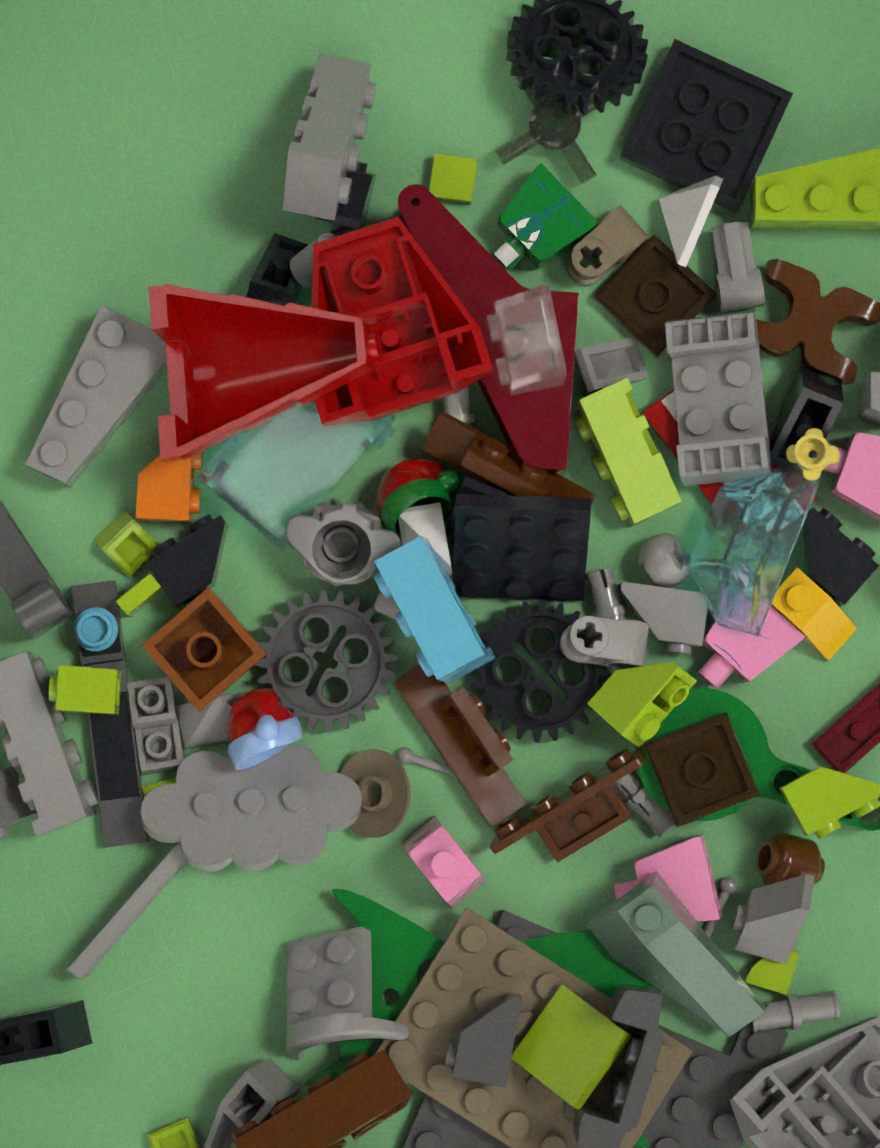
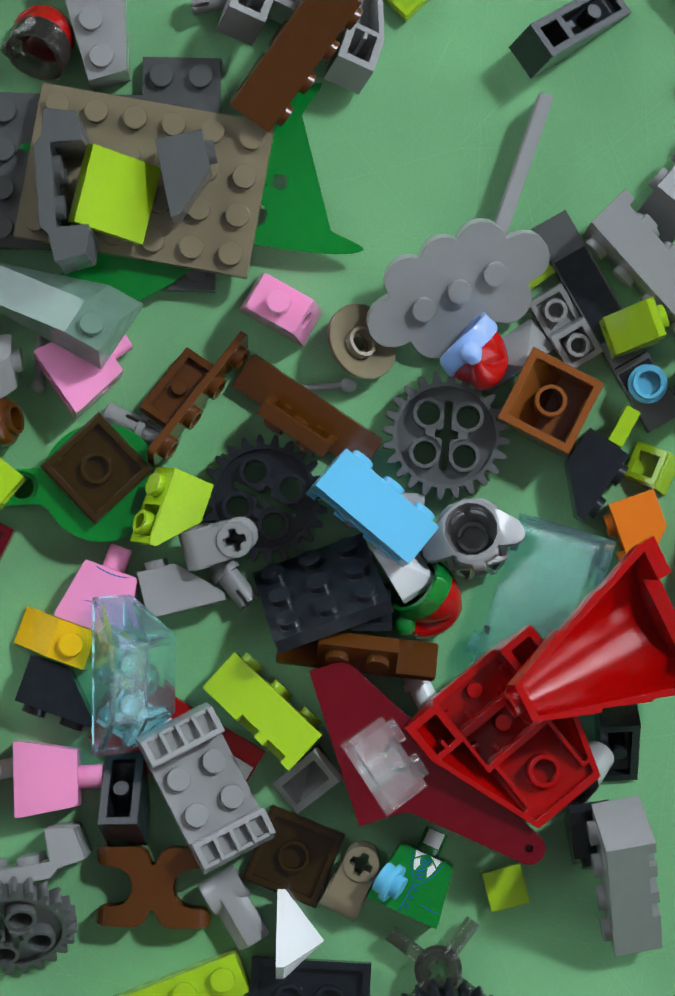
camera: 160 degrees right, 0 degrees up
(332, 992) = (328, 164): light grey piece -> none
(569, 226) = (390, 882): none -> medium azure plate
(664, 560) = (196, 632): light grey piece -> none
(810, 442) = (104, 759): light yellow plate -> none

